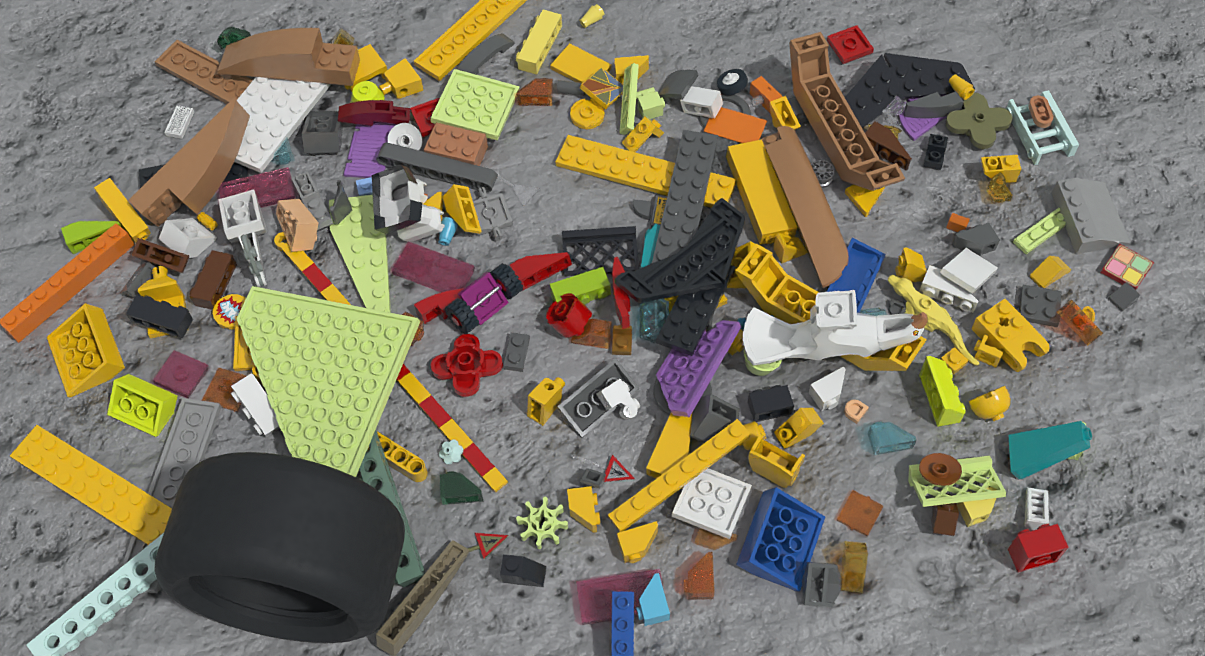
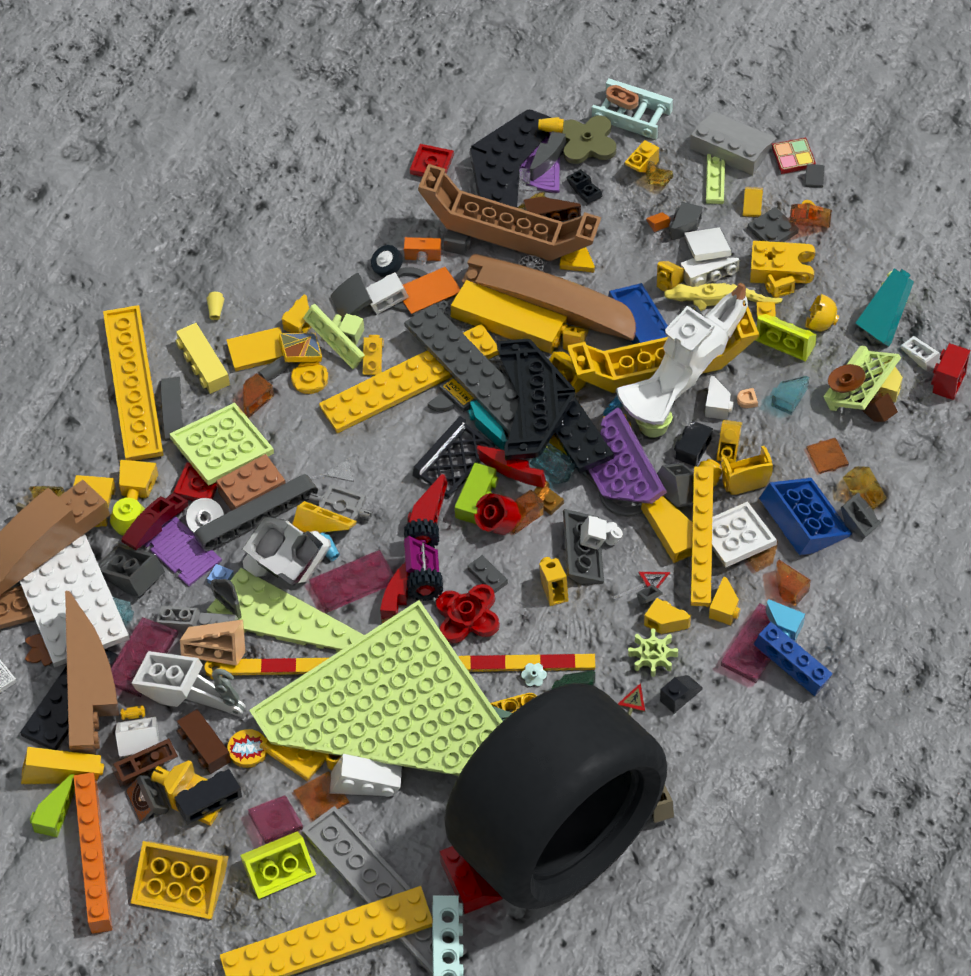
camera: 50 degrees left, 5 degrees down
(783, 114) = (456, 252): yellow slope -> none

